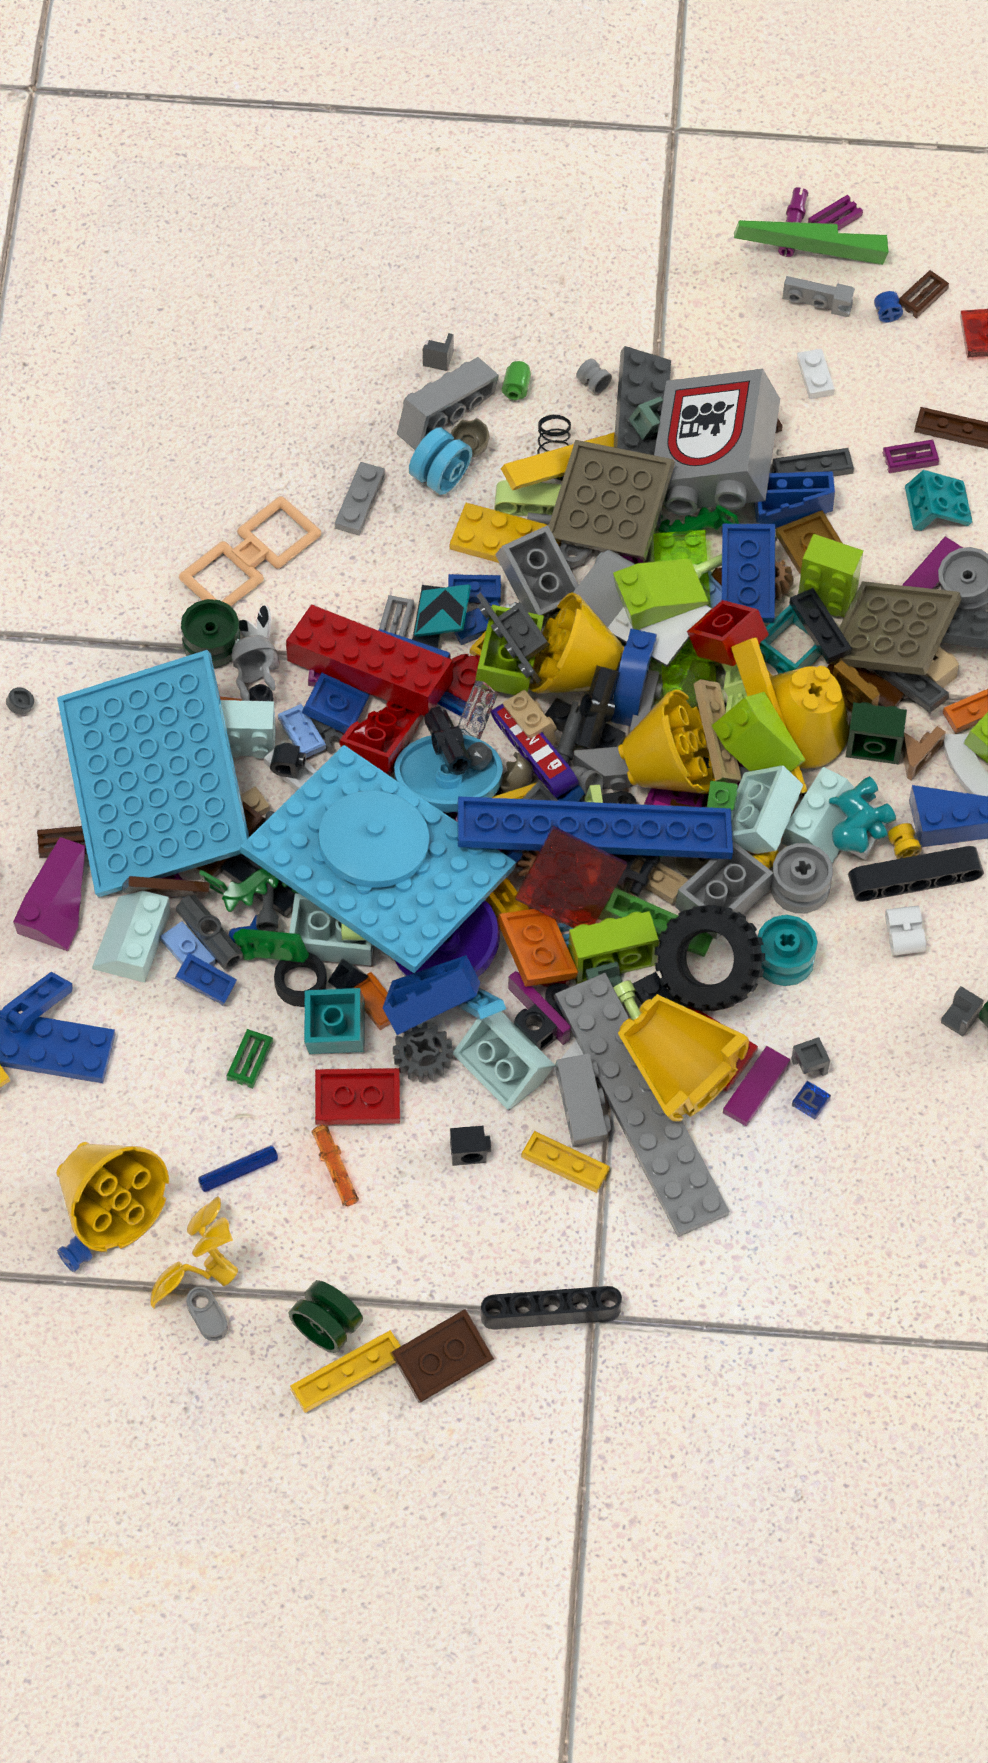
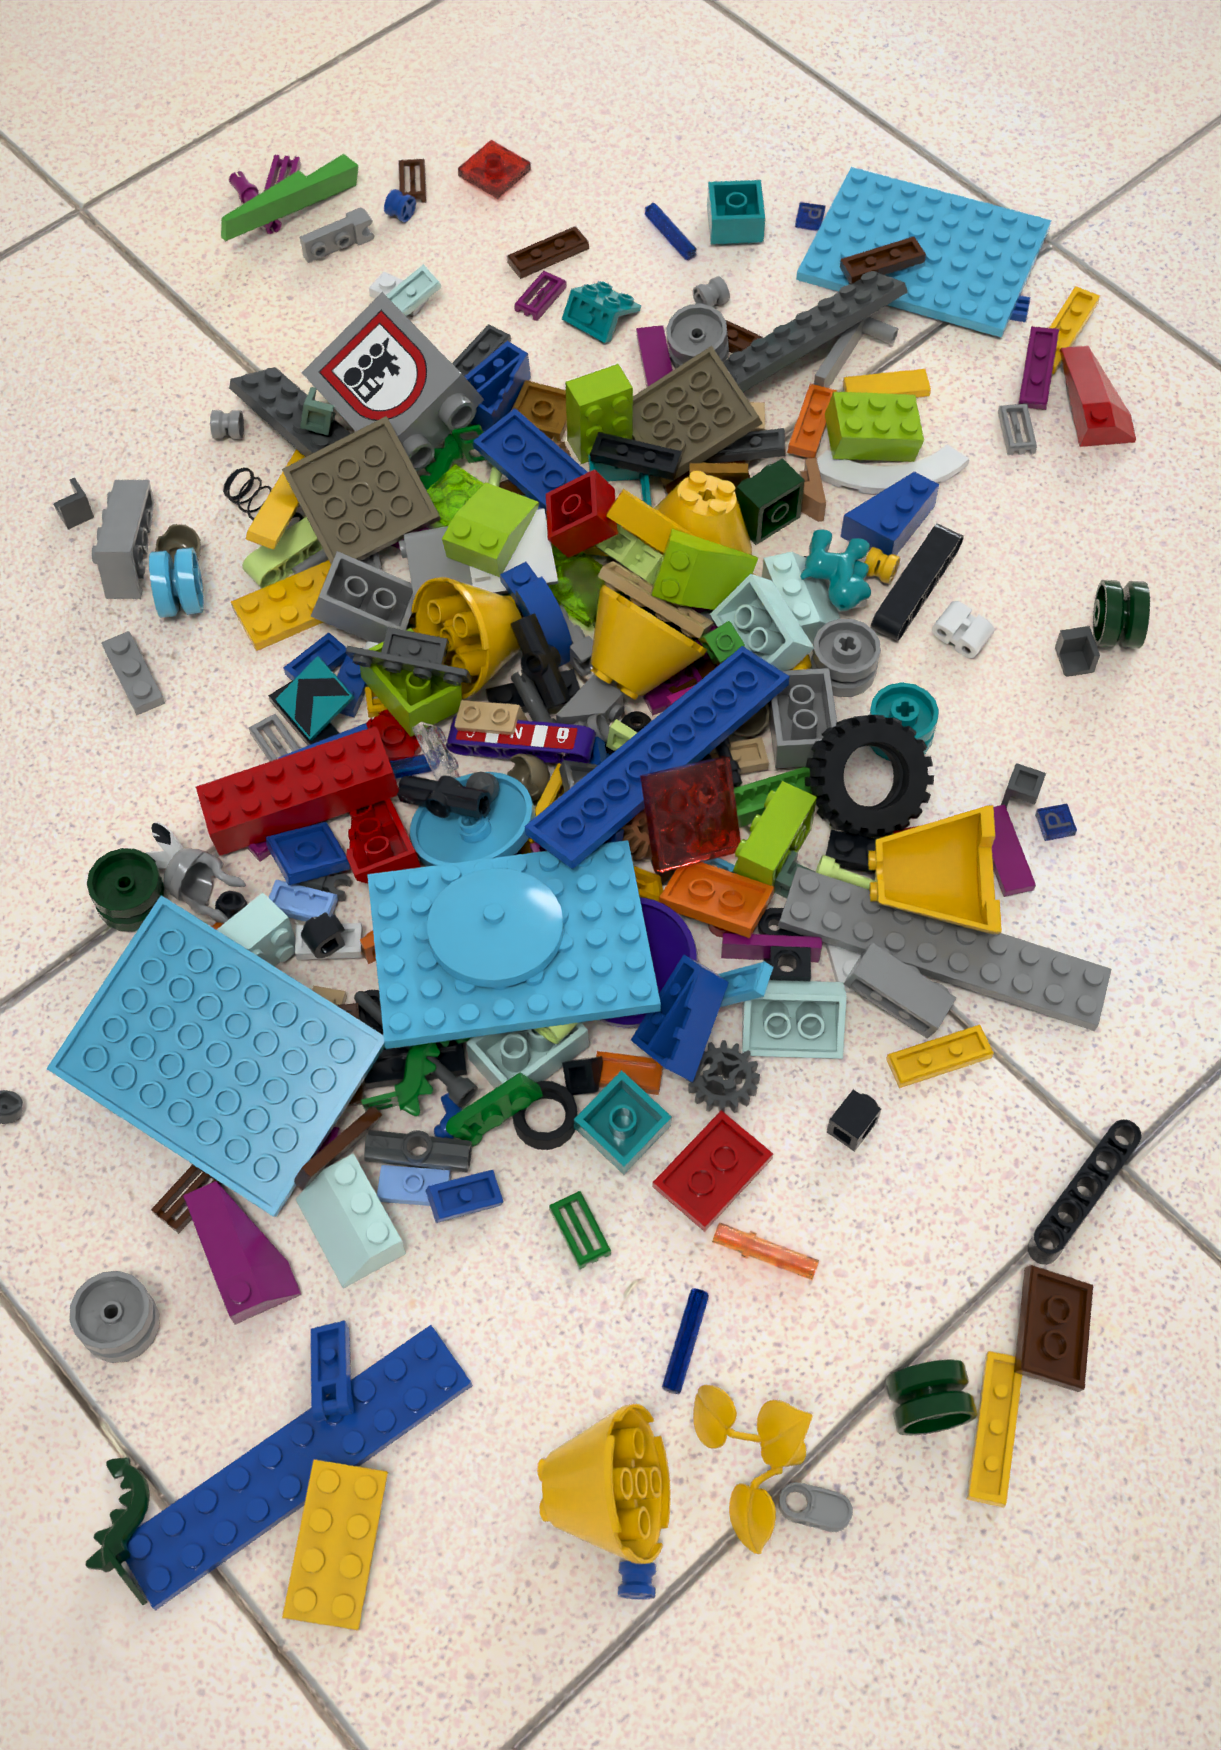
camera: 45 degrees left, 0 degrees up
(251, 552) = (83, 795): light nougat bar -> none
(516, 380) = (165, 476): bright green brick -> none
(807, 381) = (414, 290): none -> light aqua tile

